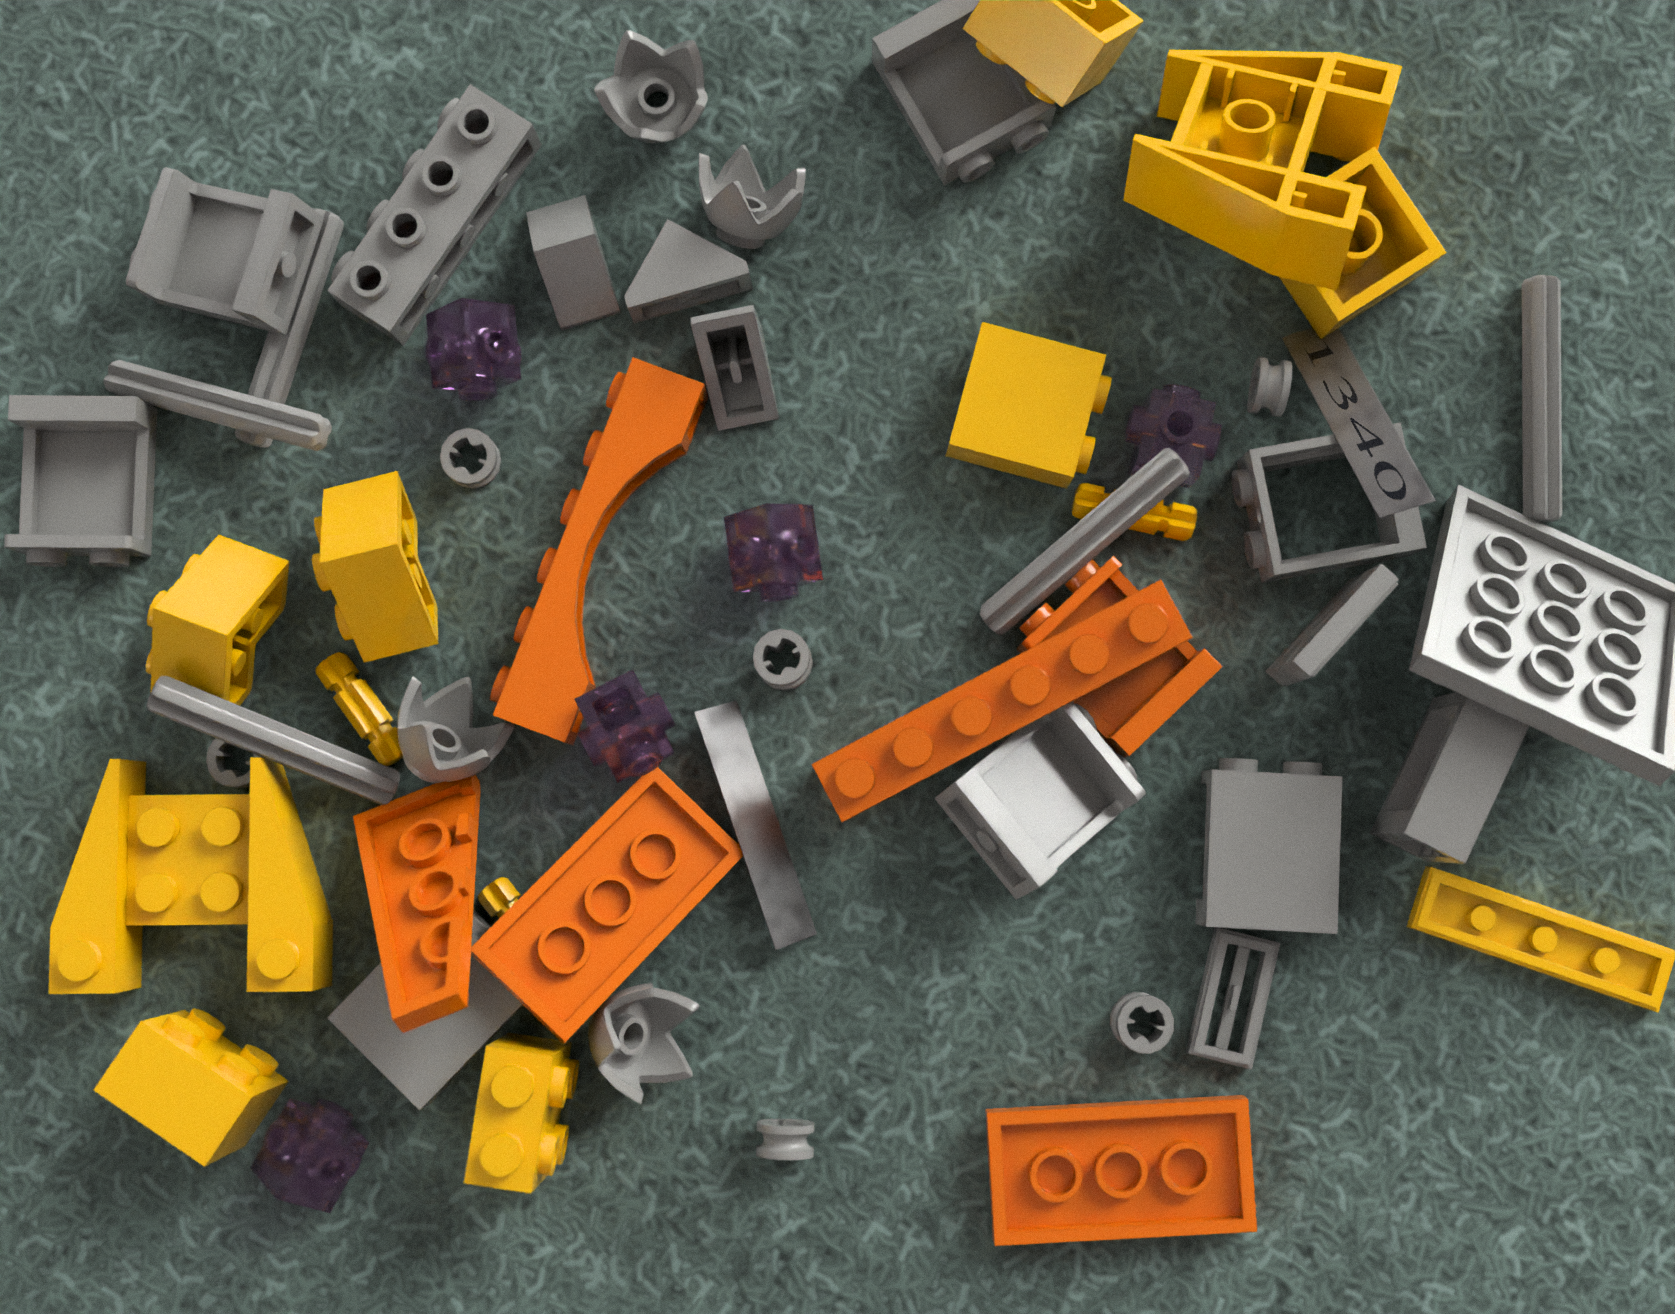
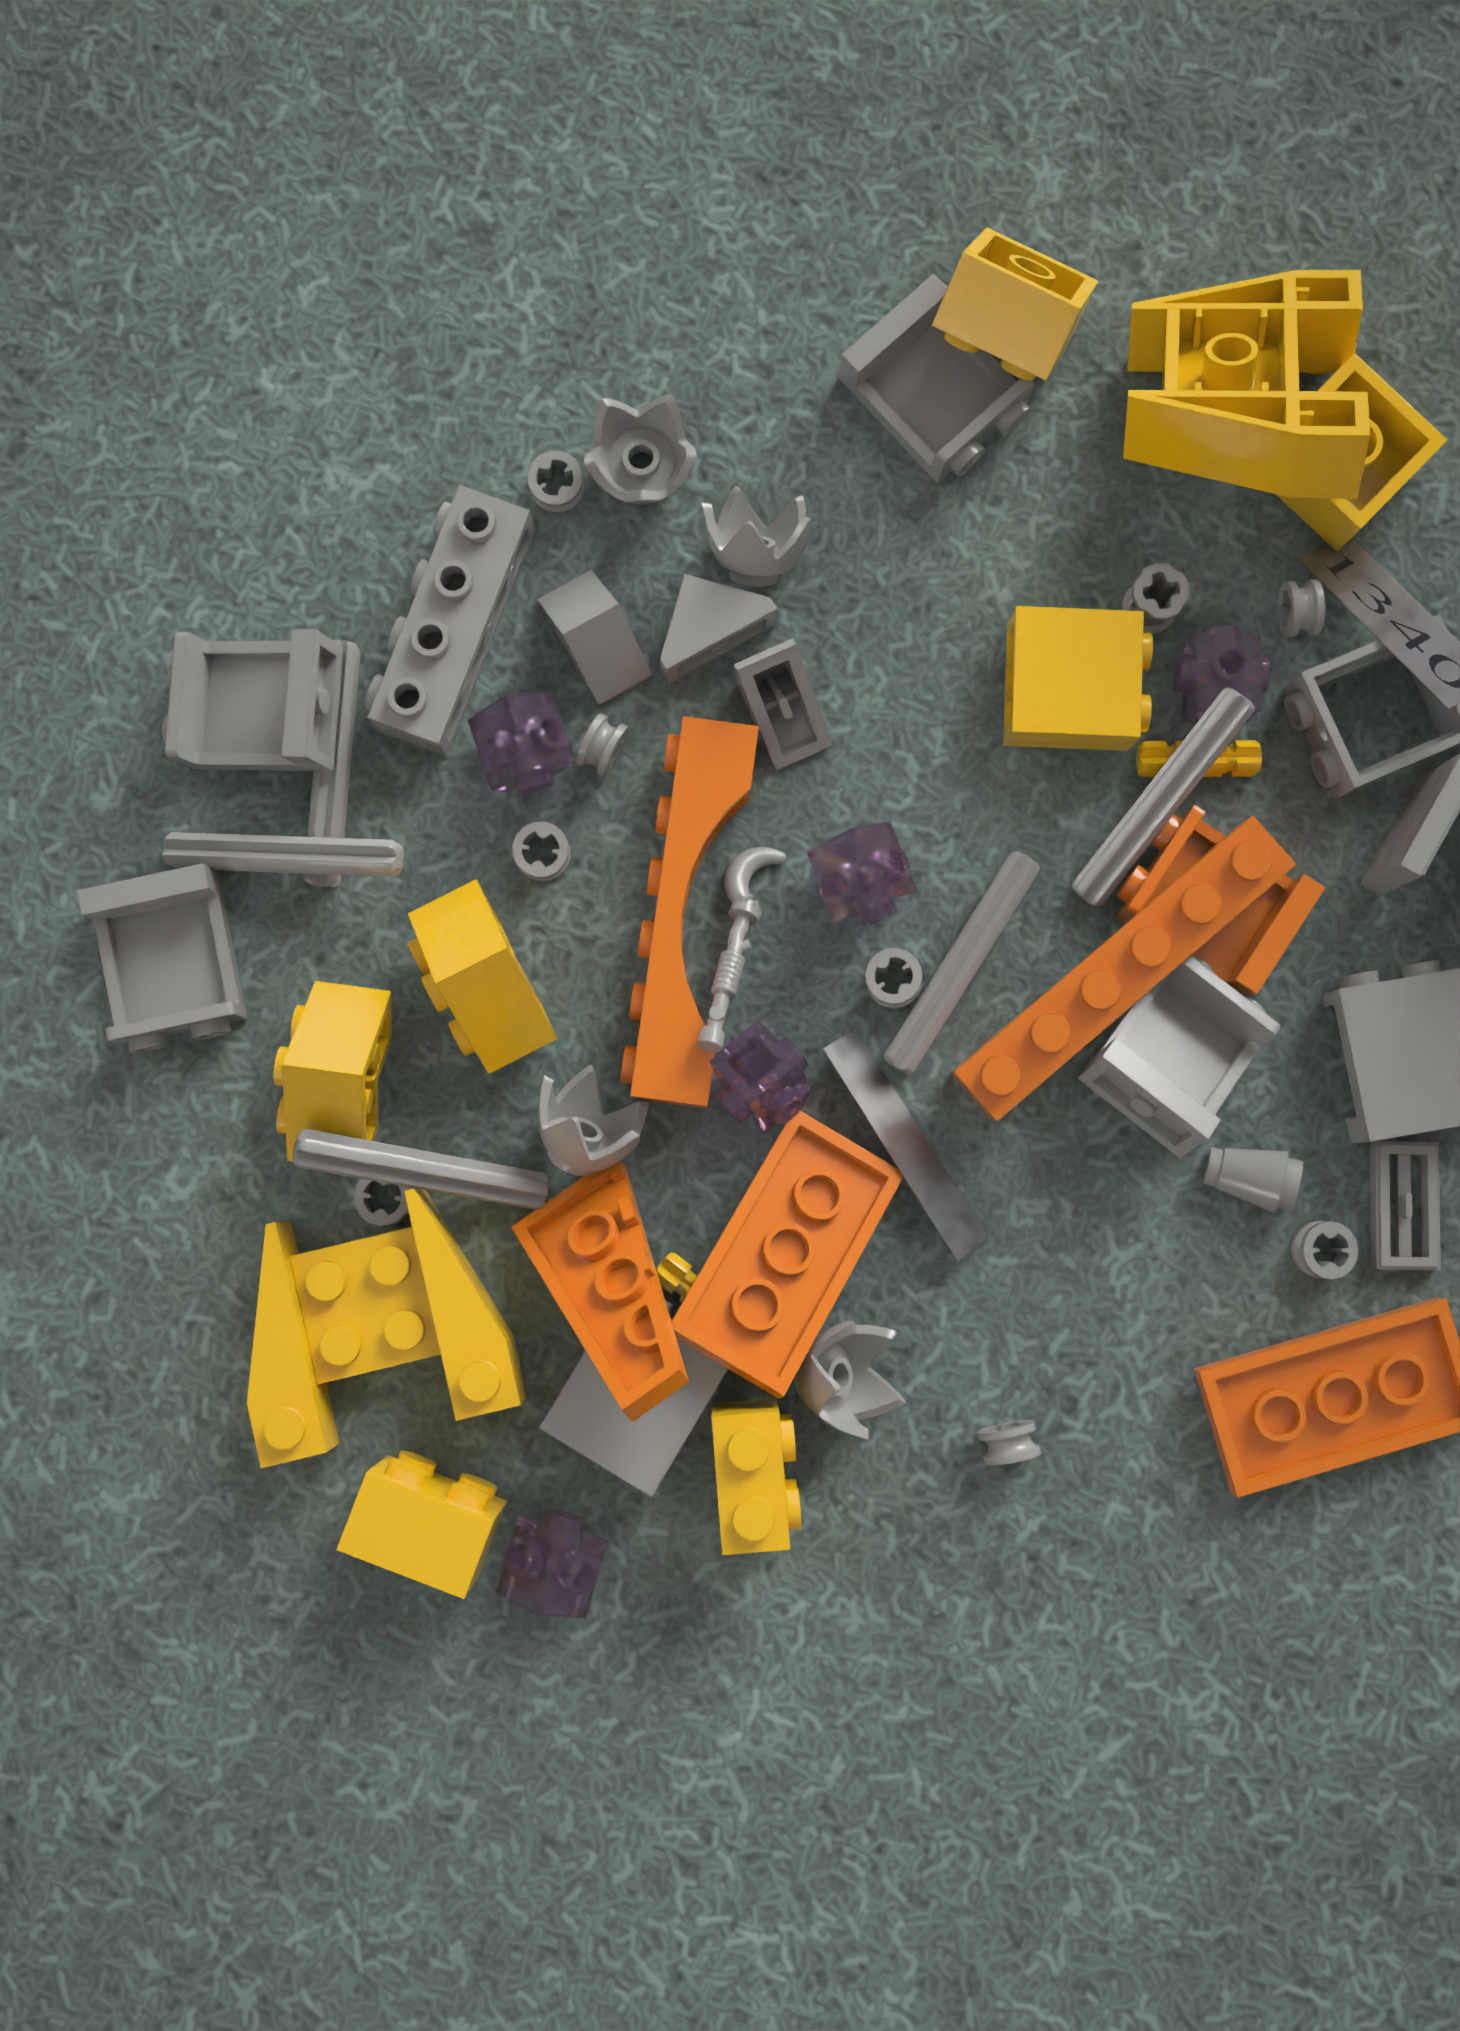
camera: 20 degrees left, 0 degrees up
(361, 707) = (494, 1119): yellow axle -> none
(552, 368) = (602, 745): none -> light grey bush
(564, 84) = (544, 467): none -> light grey bush
(623, 608) = (744, 913): none -> light grey piece
(852, 659) = (961, 963): none -> light grey axle
(1089, 934) = (1255, 1176): none -> light grey cone
(1141, 335) = (1163, 582): none -> light grey bush

